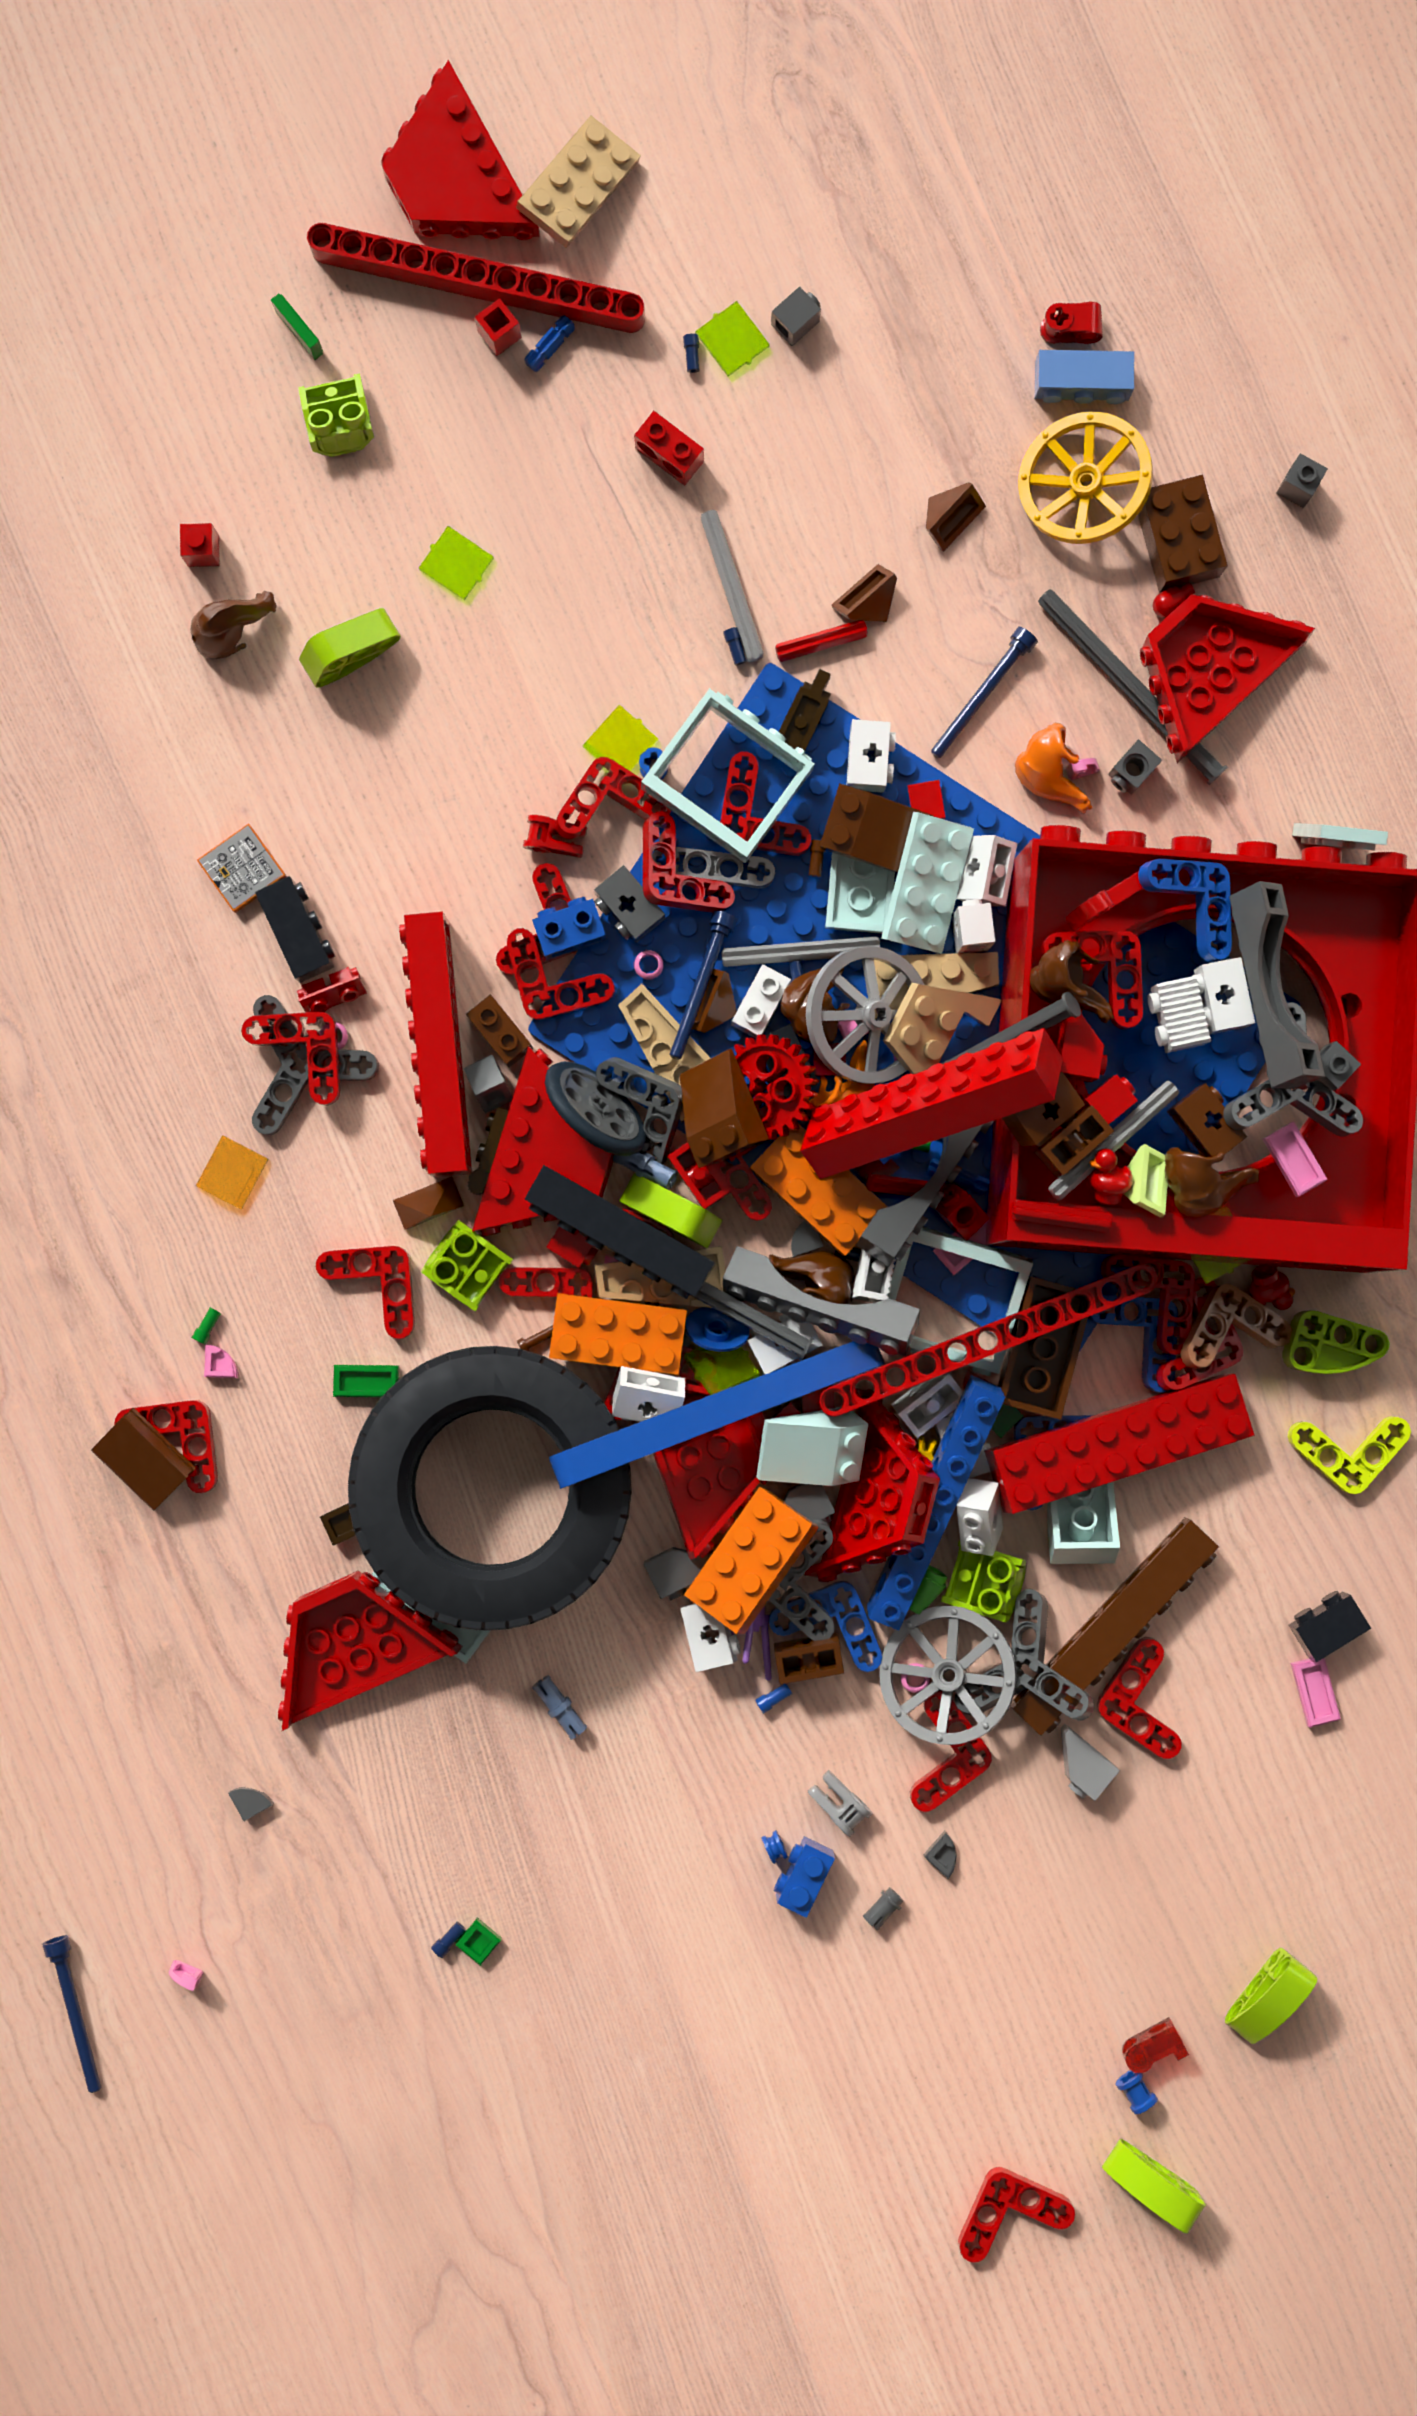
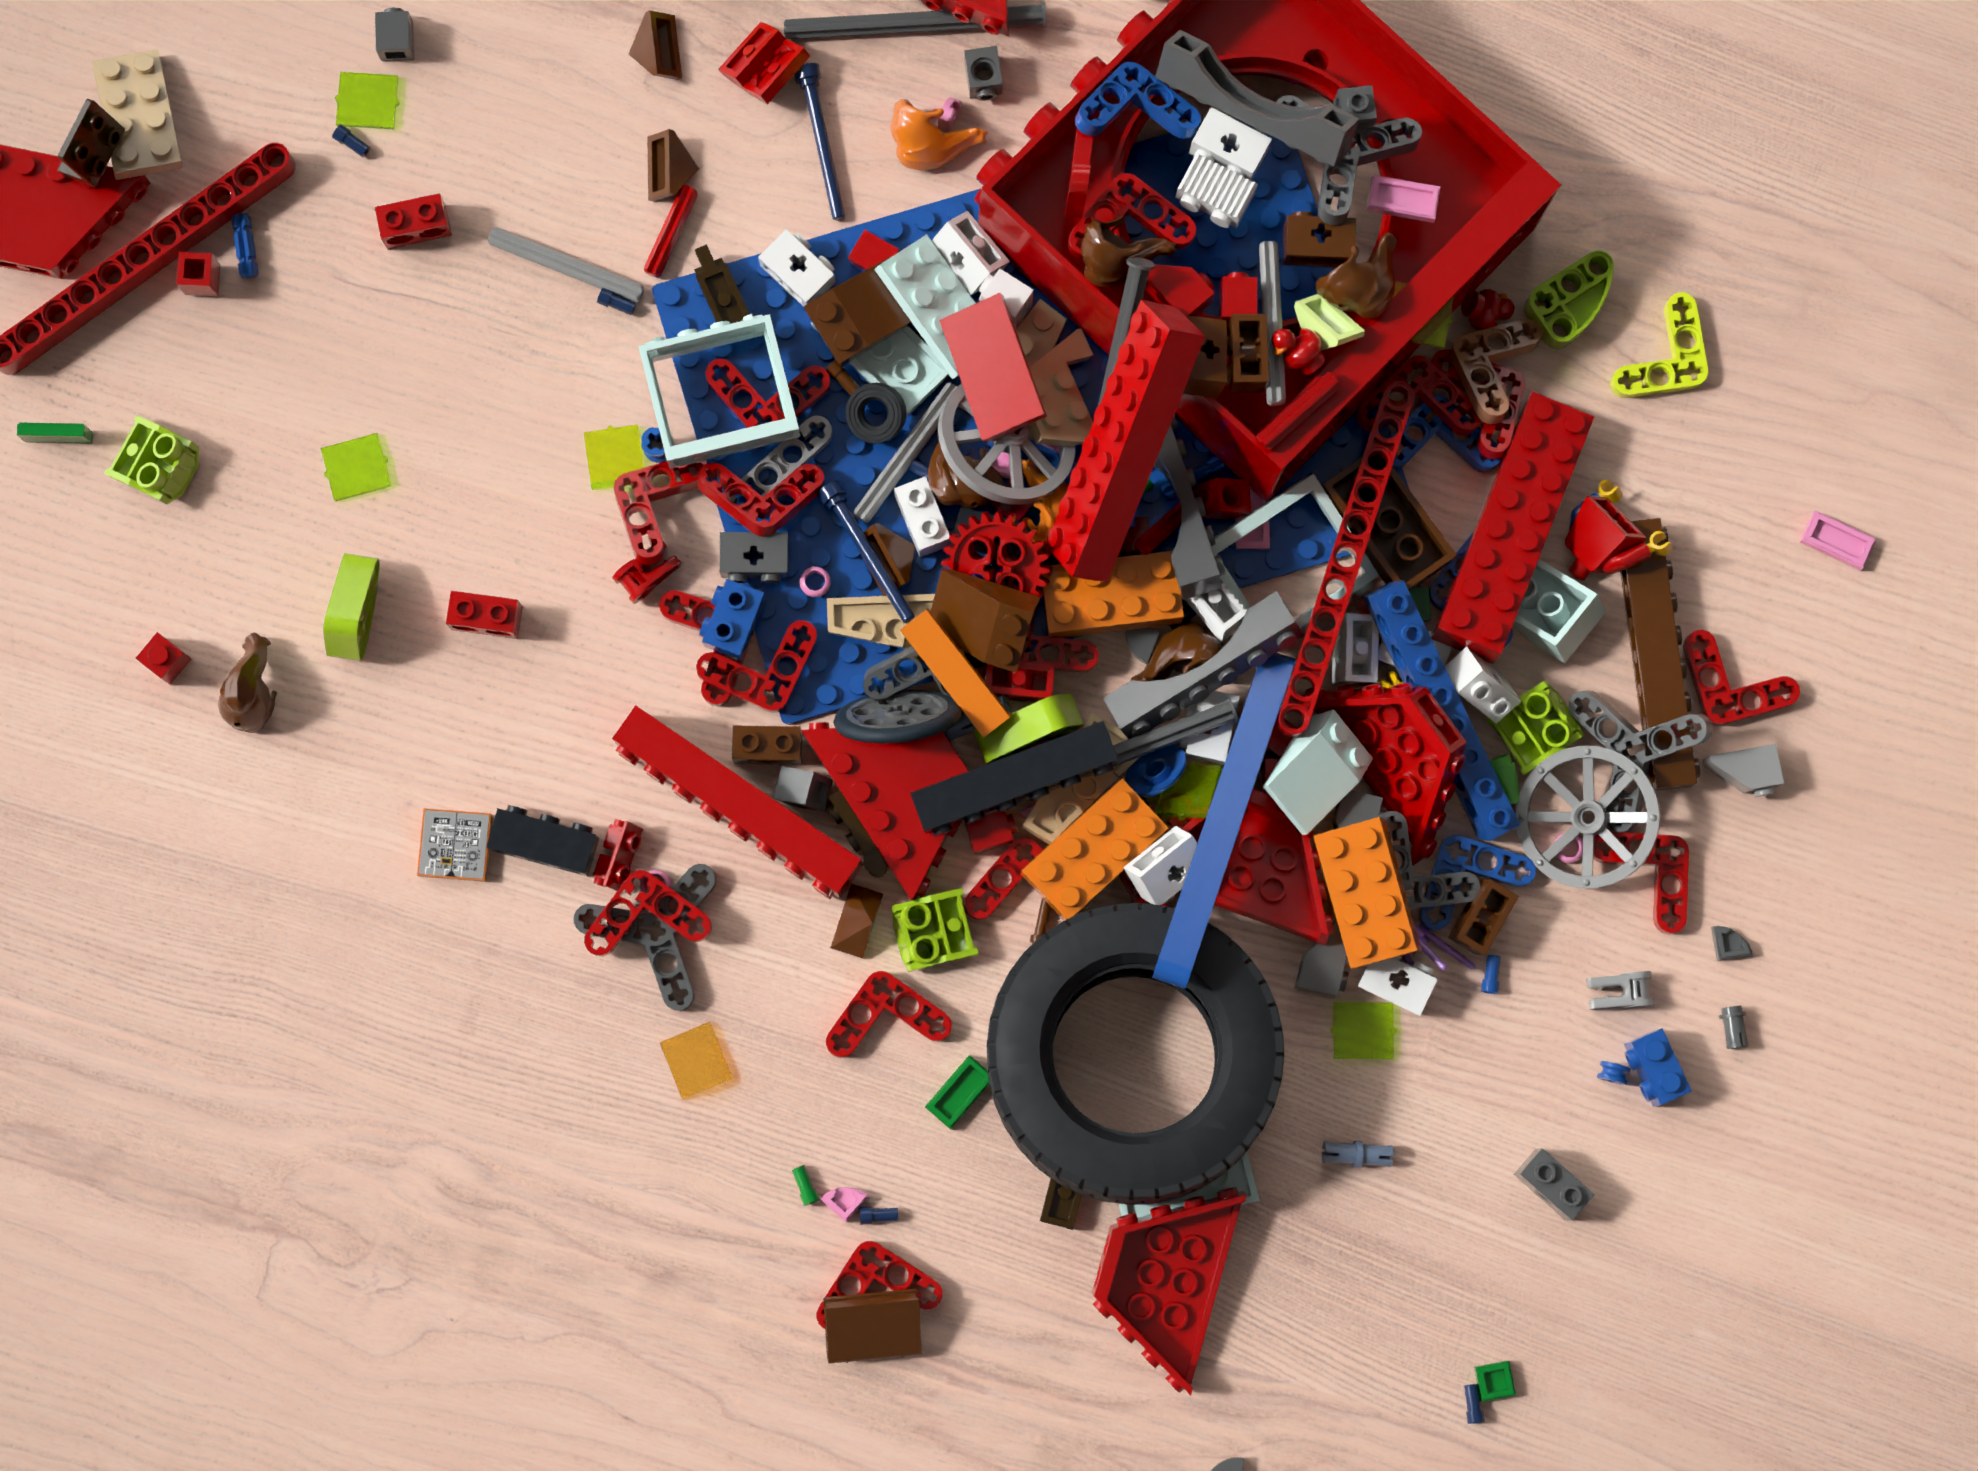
camera: 50 degrees left, 5 degrees down
(223, 1390) = (870, 1215): none -> dark blue piece
(423, 746) = (484, 614): none -> red brick
(521, 162) = (89, 144): none -> dark brown bracket
(654, 1637) = (1363, 1030): none -> clear neon green piece
(655, 1870) = (1553, 1184): none -> dark grey brick
(662, 1123) = (955, 672): none -> orange tile
(828, 903) = (856, 417): none -> black tyre
(909, 961) = (993, 368): none -> tile
(1005, 601) = (764, 62): none -> red slope
(1170, 1516) = (1606, 538): none -> red torso
(1329, 1625) = (1793, 485): black brick -> none

